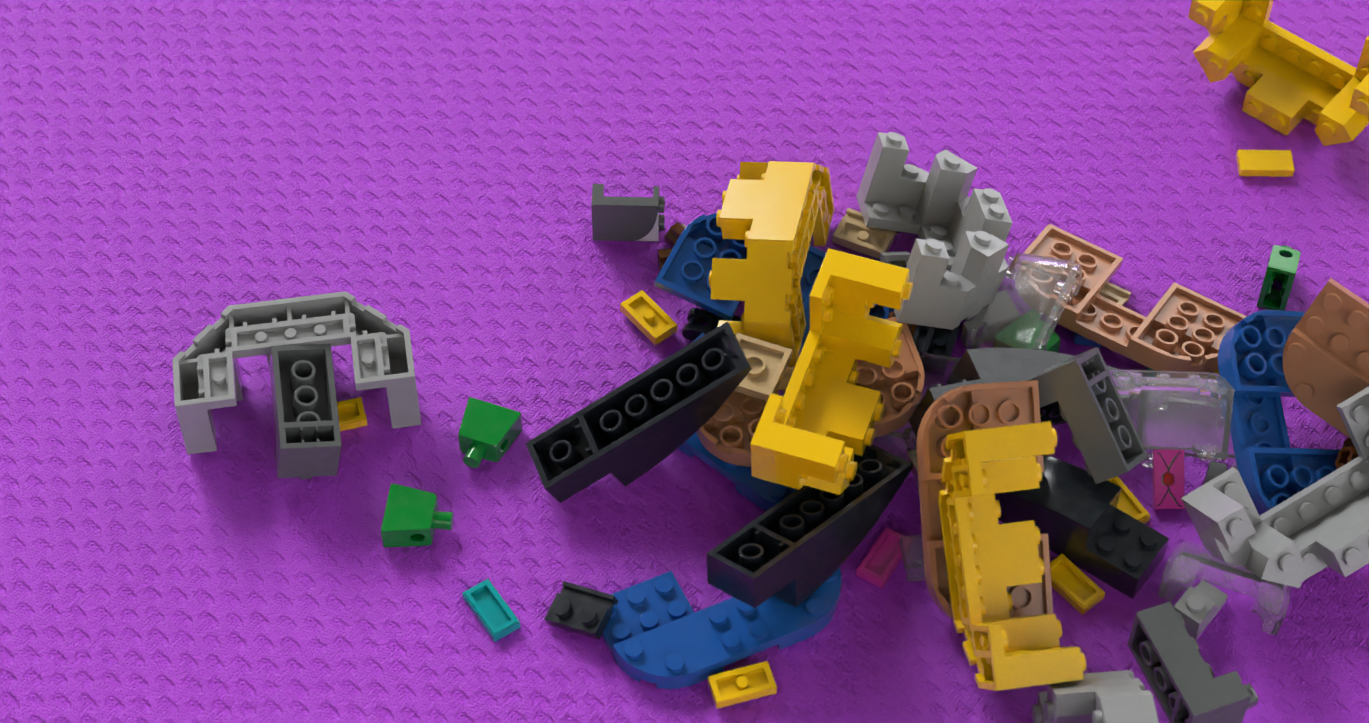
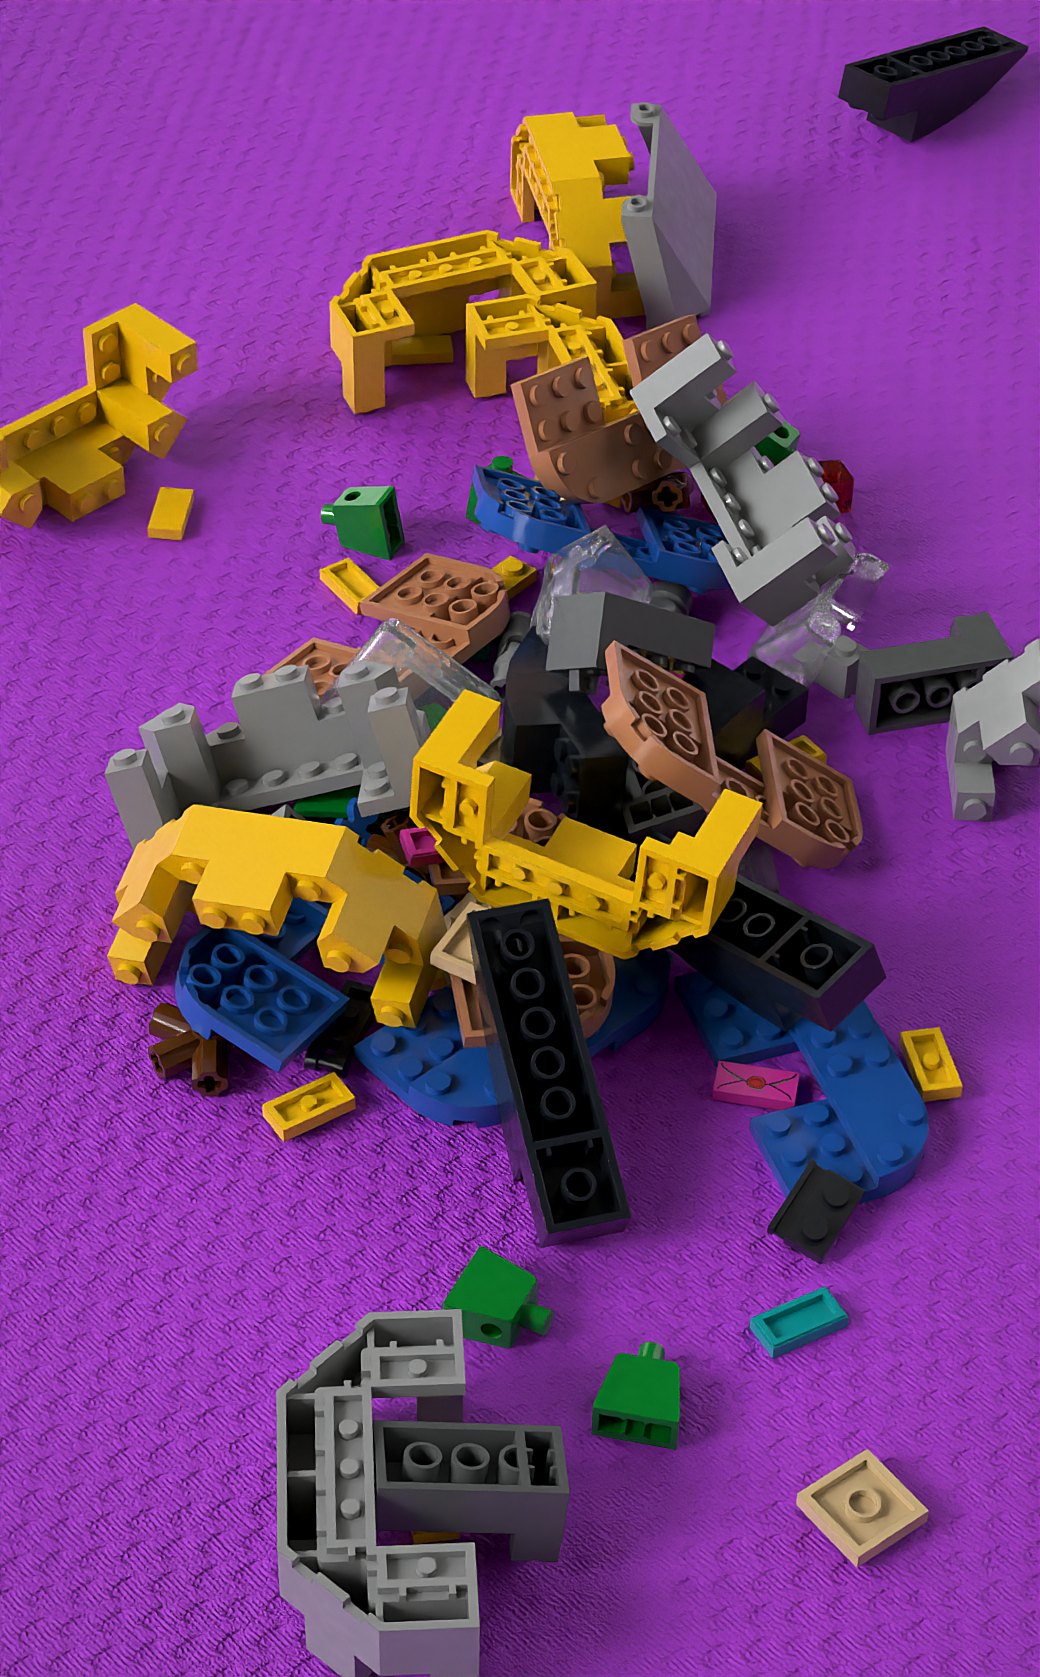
camera: 85 degrees left, 10 degrees down
(331, 646) = (862, 1508): none -> tan plate
(627, 216) = (121, 1121): dark grey panel -> none
(702, 591) = (755, 1086): none -> dark pink tile
(993, 556) = (769, 684): yellow brick -> none
(1215, 281) = (348, 583): none -> yellow tile

